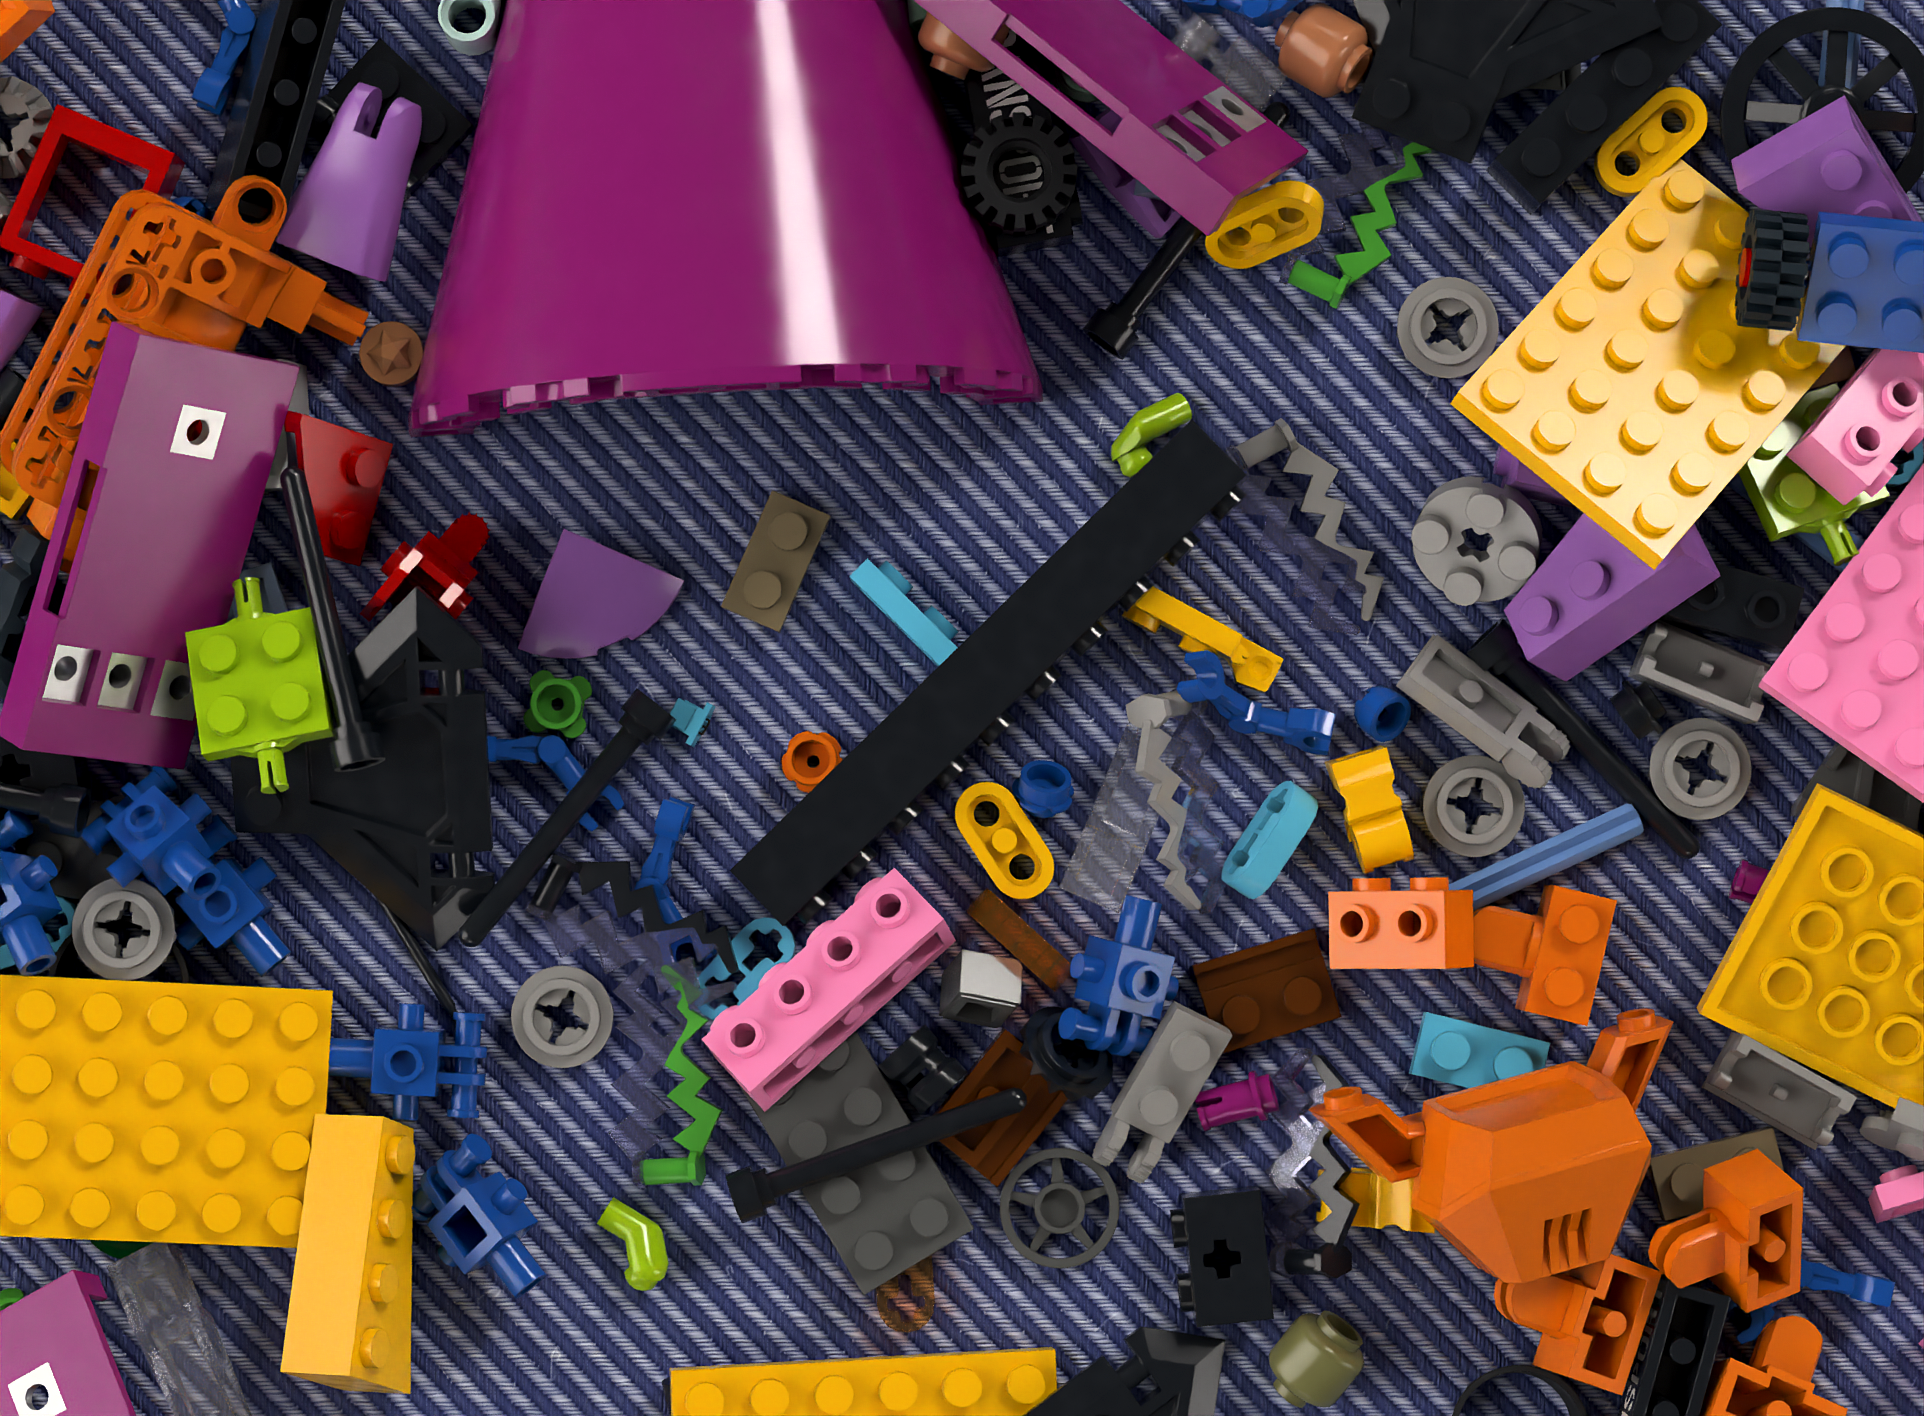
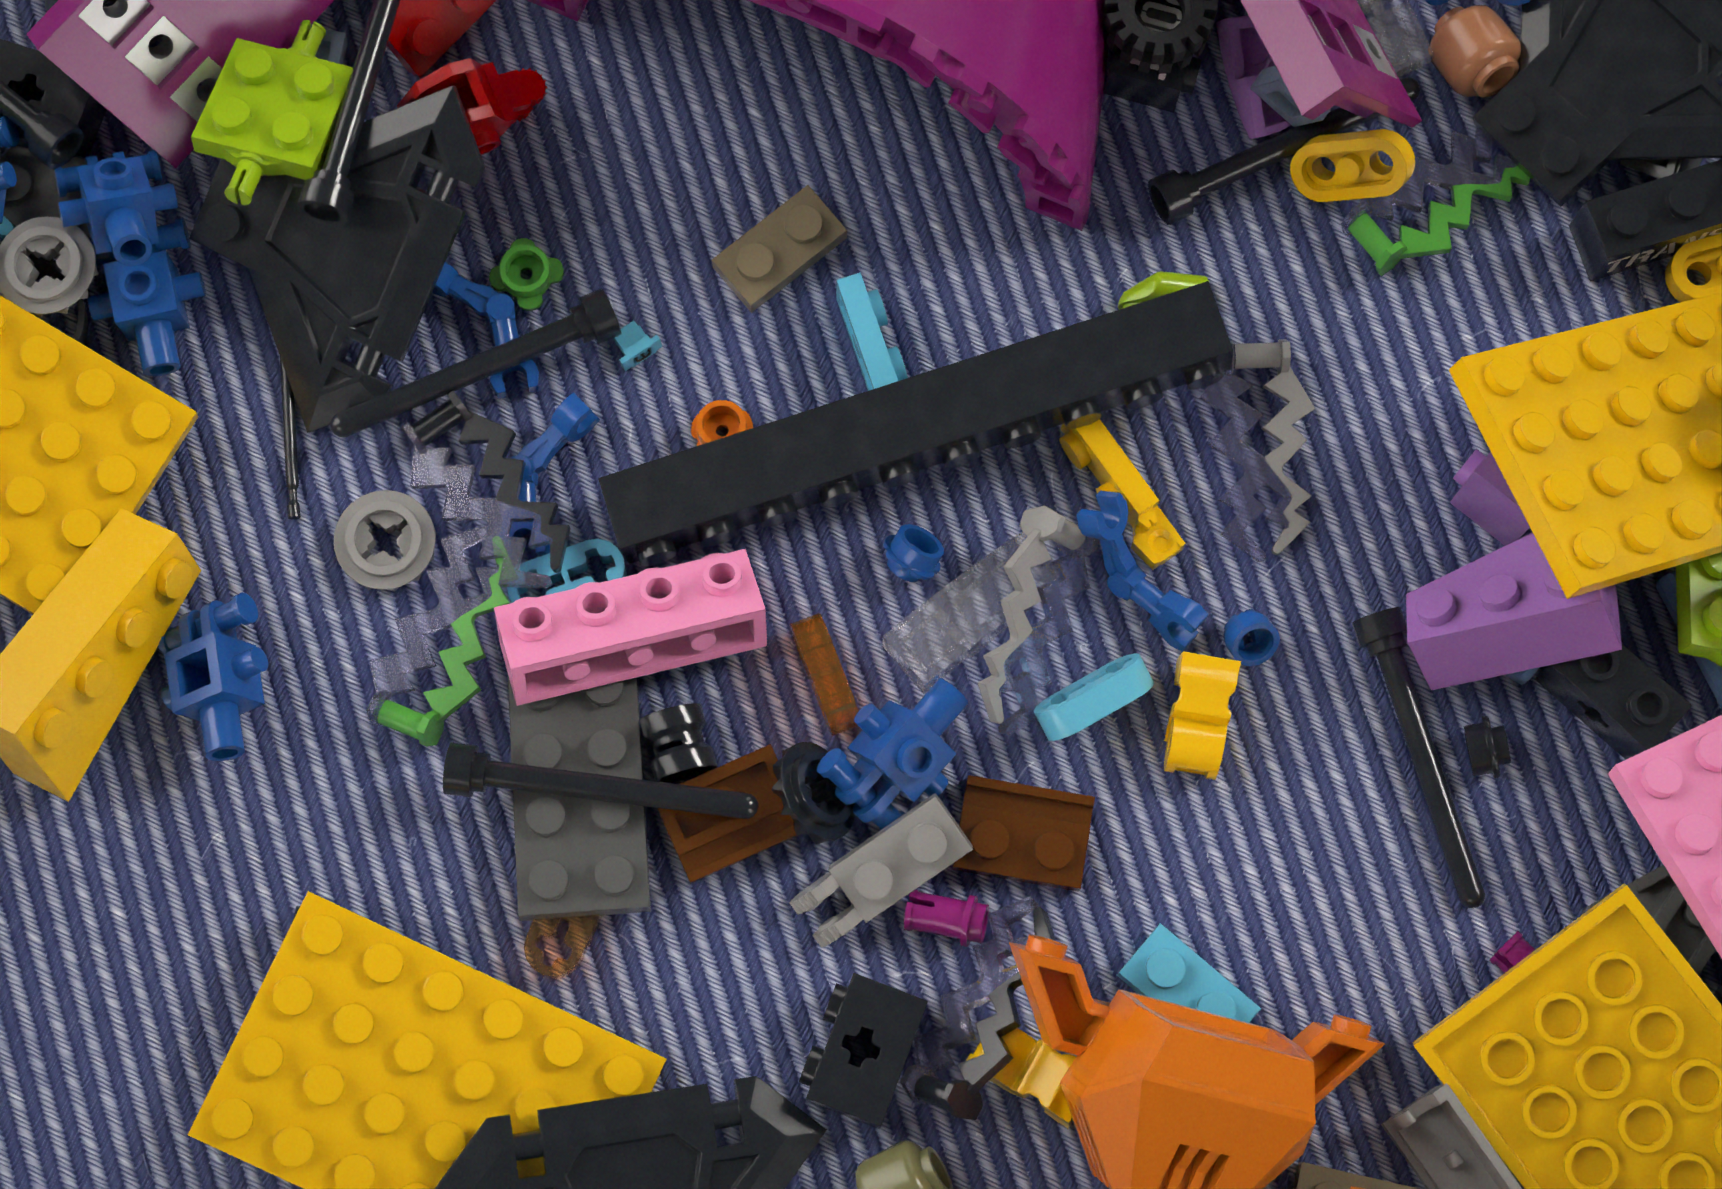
camera: 30 degrees right, 10 degrees down
(411, 1062) = (233, 512): blue piece -> none
(594, 600) = (605, 201): medium lavender brick -> none
(643, 1242) = (347, 776): lime arm -> none
(980, 988) = (767, 699): slope -> none
(1004, 840) = (856, 582): yellow plate -> none
(1059, 1208) = (737, 933): dark grey wheel -> none
(1401, 927) = (1176, 827): orange brick -> none
(1449, 297) = (1483, 311): light grey gear -> none
(1484, 507) = (1433, 495): light grey plate -> none
(1484, 711) = (1344, 681): light grey hinge -> none
(1497, 788) = (1323, 759): light grey gear -> none
(1551, 856) = (1312, 840): medium blue axle -> none
(1552, 951) = (1303, 922): orange brick -> none
(1700, 672) = (1556, 745): light grey hinge -> none
(1726, 756) = (1546, 834): light grey gear -> none

